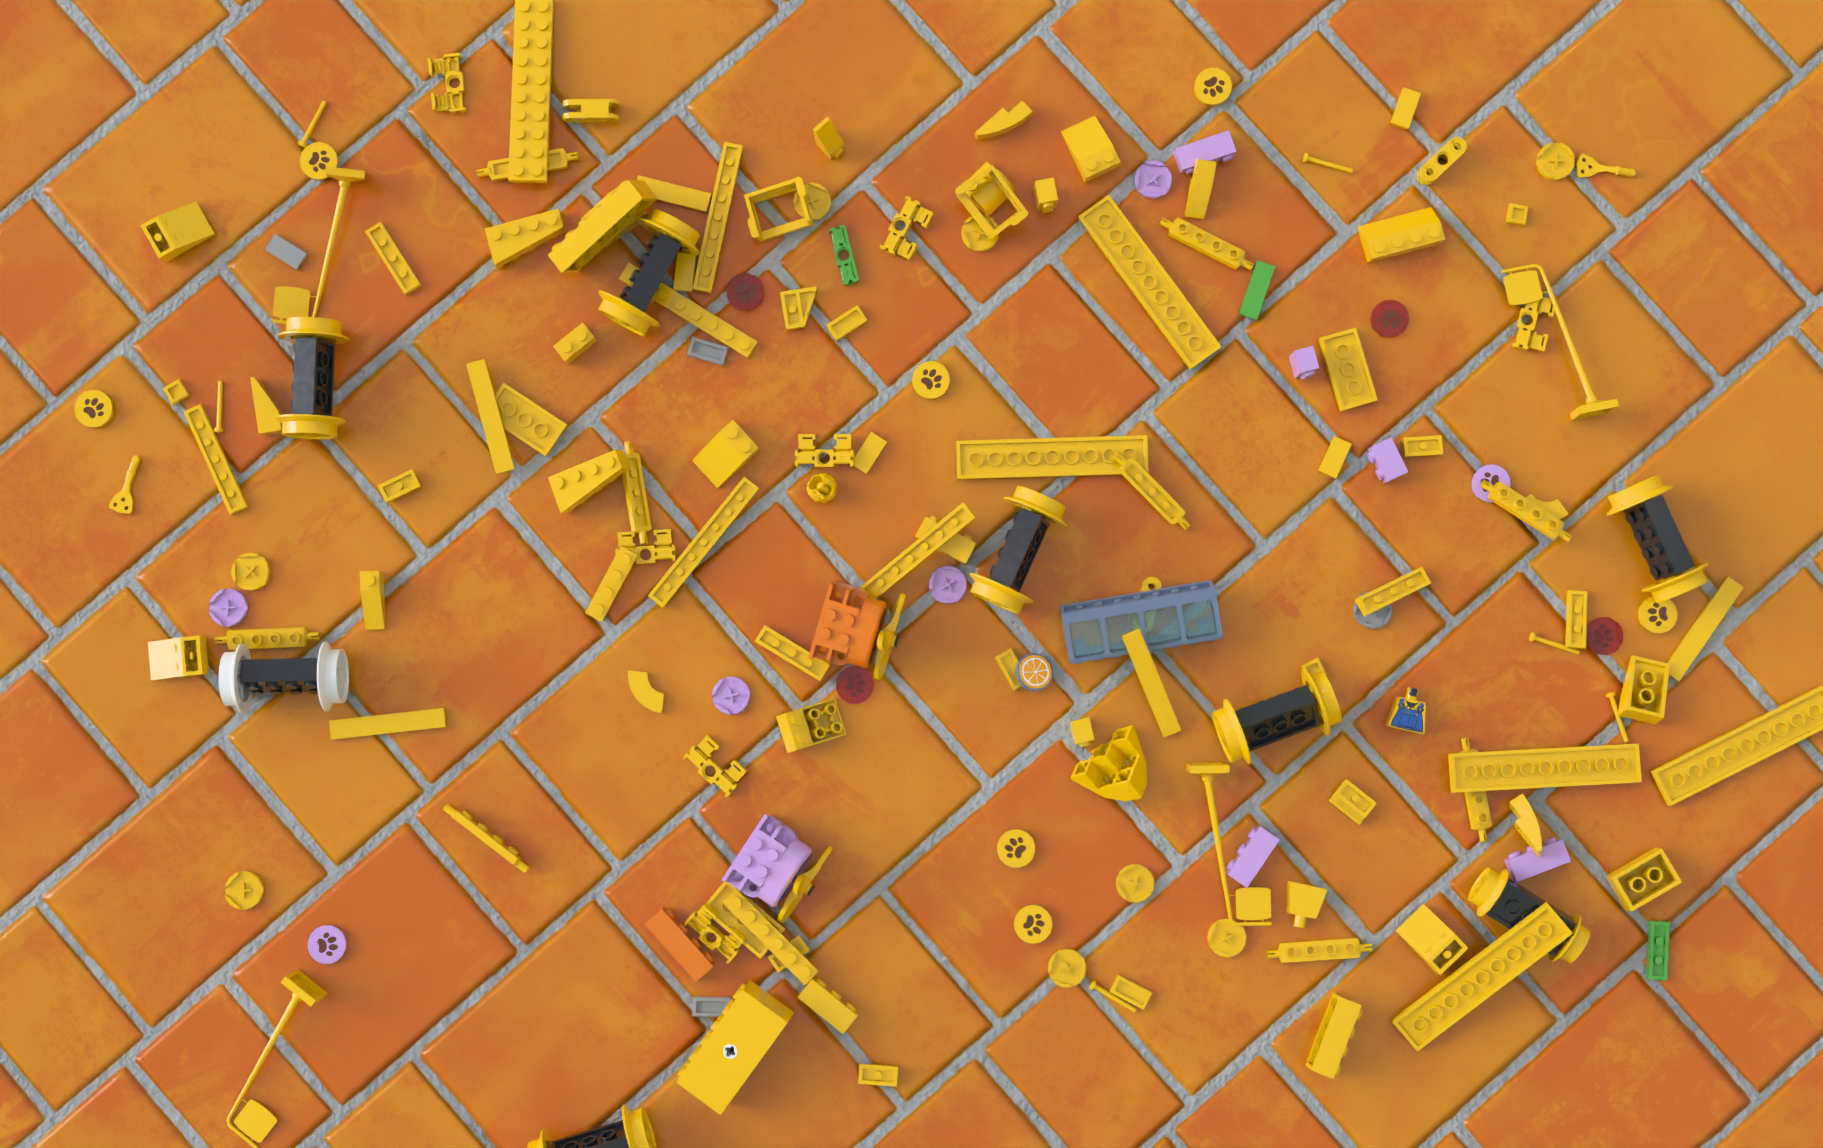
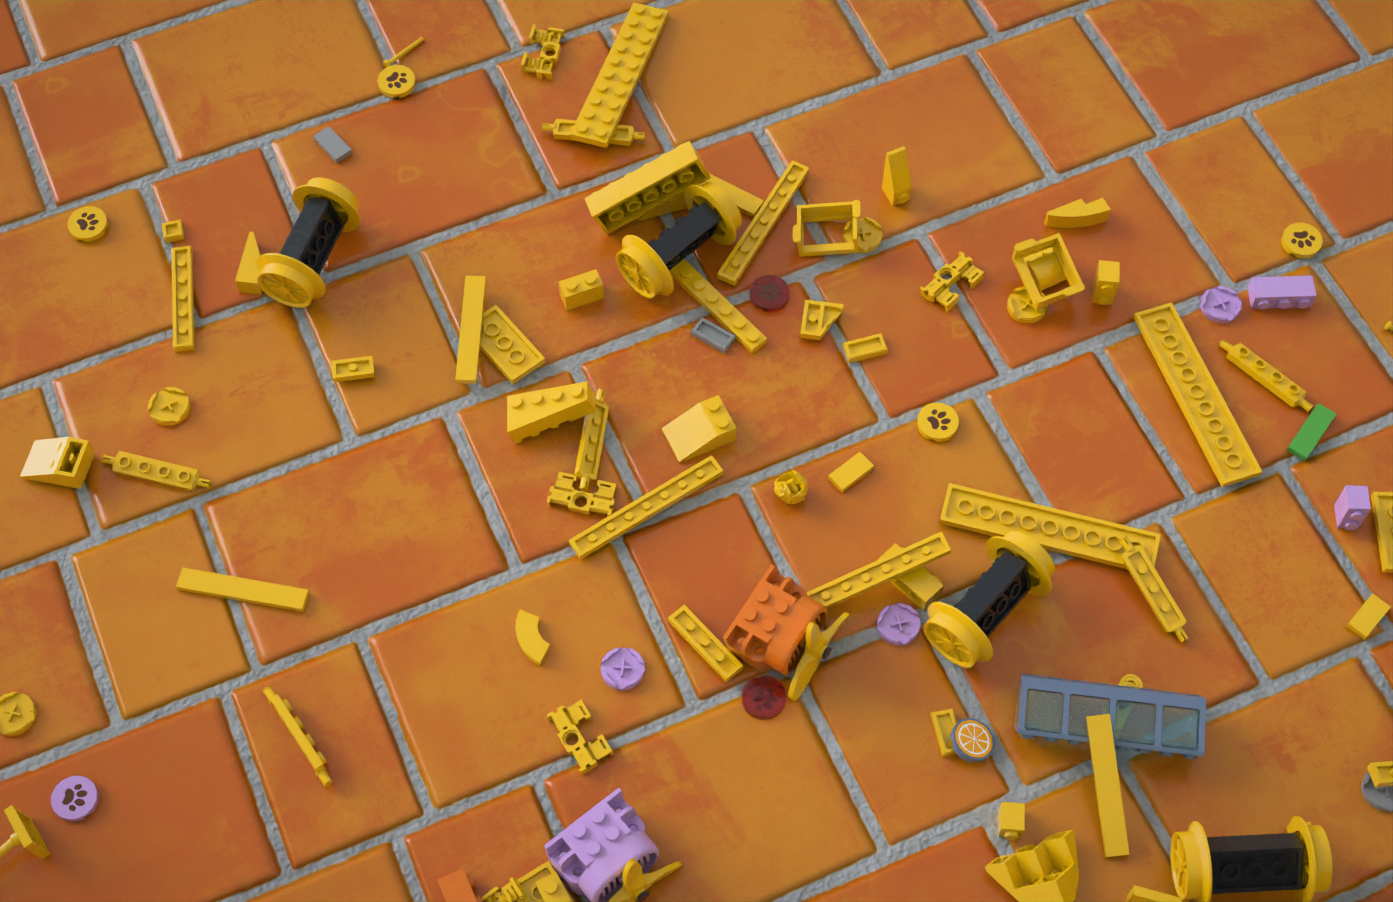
camera: 15 degrees right, 25 degrees down
(126, 491) = (81, 303): yellow piece -> none
(177, 231) = (238, 99): yellow slope -> none
(218, 429) = (198, 272): yellow piece -> none
(228, 607) = (131, 433): lavender tile -> none
(244, 677) = (117, 490): brick -> none
(294, 301) = (409, 86): yellow piece -> none
(373, 599) = (281, 463): yellow slope -> none
(393, 258) = (432, 176): yellow tile -> none
(519, 236) = (564, 185): yellow wedge -> none
(590, 110) = (670, 104): yellow piece -> none
(611, 583) = (534, 518): yellow plate -> none
(684, 272) = (714, 260): yellow tile -> none
(811, 725) = (700, 723): yellow slope -> none
(841, 243) = (880, 299): bright green piece -> none
(841, 456) = (821, 463): yellow piece -> none
(1091, 149) = (1163, 262): yellow slope -> none
(1200, 188) = (1270, 319): yellow slope -> none

